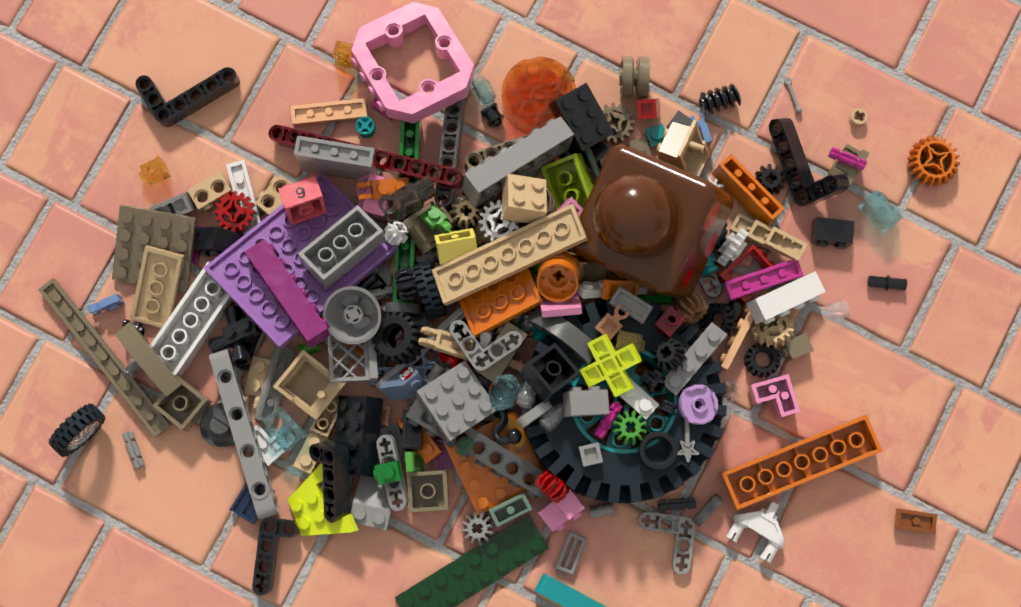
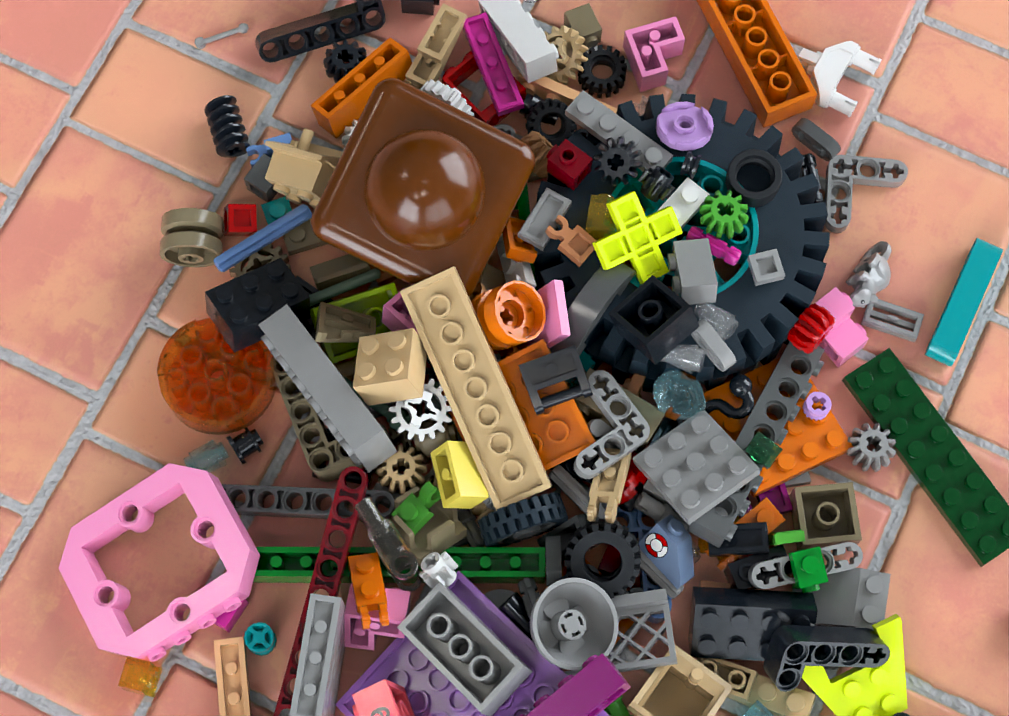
camera: 95 degrees left, 10 degrees down
(406, 284) = (519, 550): black gear -> none
(510, 492) = (817, 414): none -> lavender bush
(510, 508) = (846, 402): sand green brick -> none
(519, 305) = (551, 370): none -> black plate
(560, 172) = (342, 325): none -> dark tan wing
(600, 540) = (871, 275): none -> light grey animal
(602, 510) = (830, 277): light grey pin -> none
(633, 123) = (262, 238): none -> medium blue axle
(687, 446) = (742, 141): light grey piece -> none

